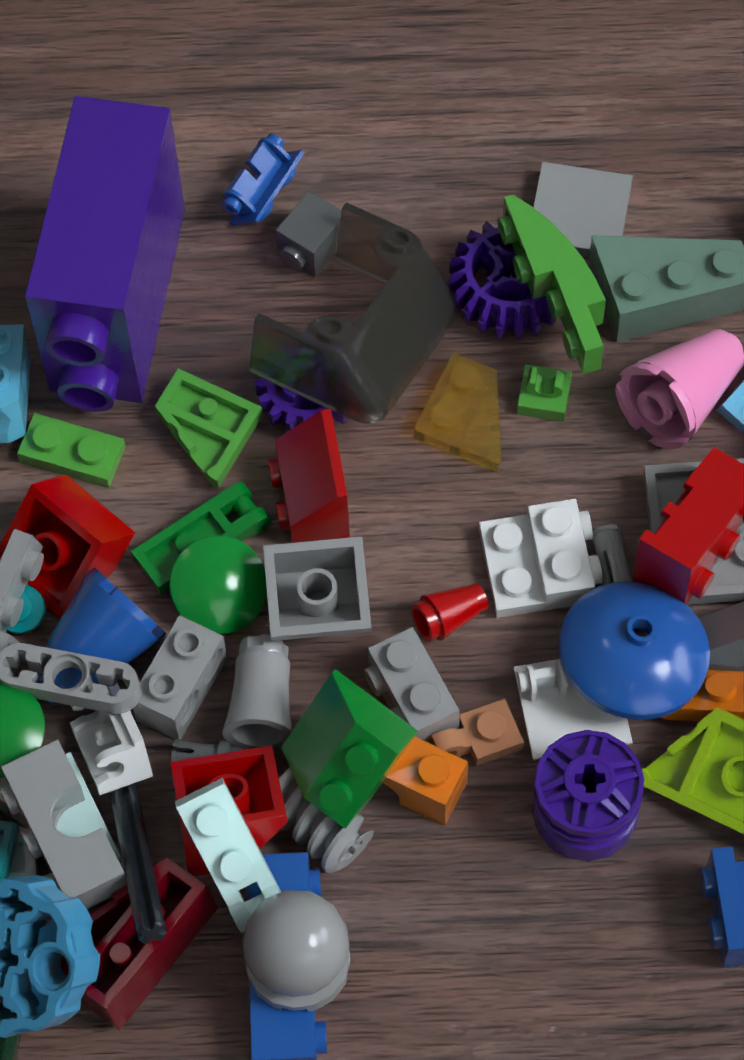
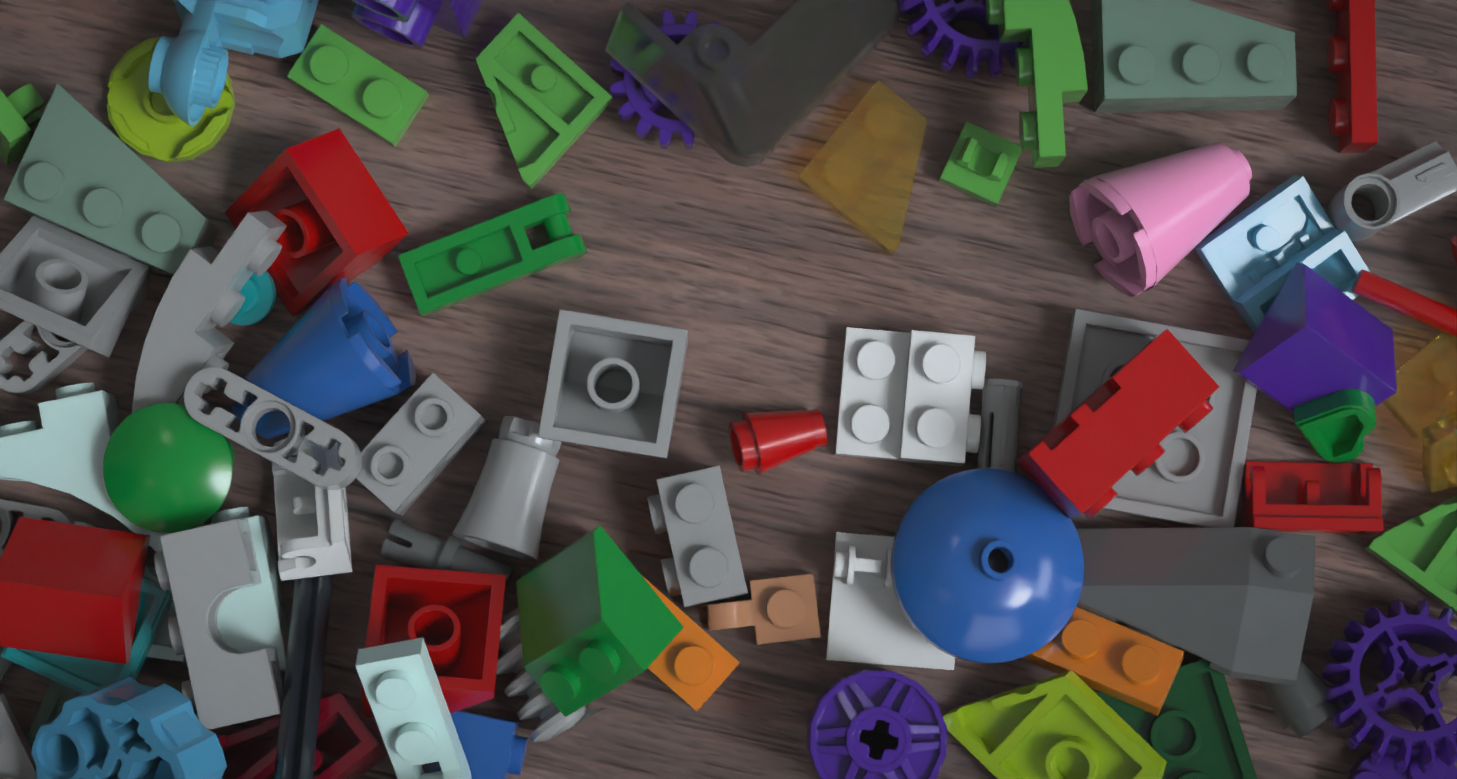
camera: 10 degrees right, 20 degrees up
(218, 584) = (495, 330): green dish -> none
(311, 481) = (645, 225): red slope -> none

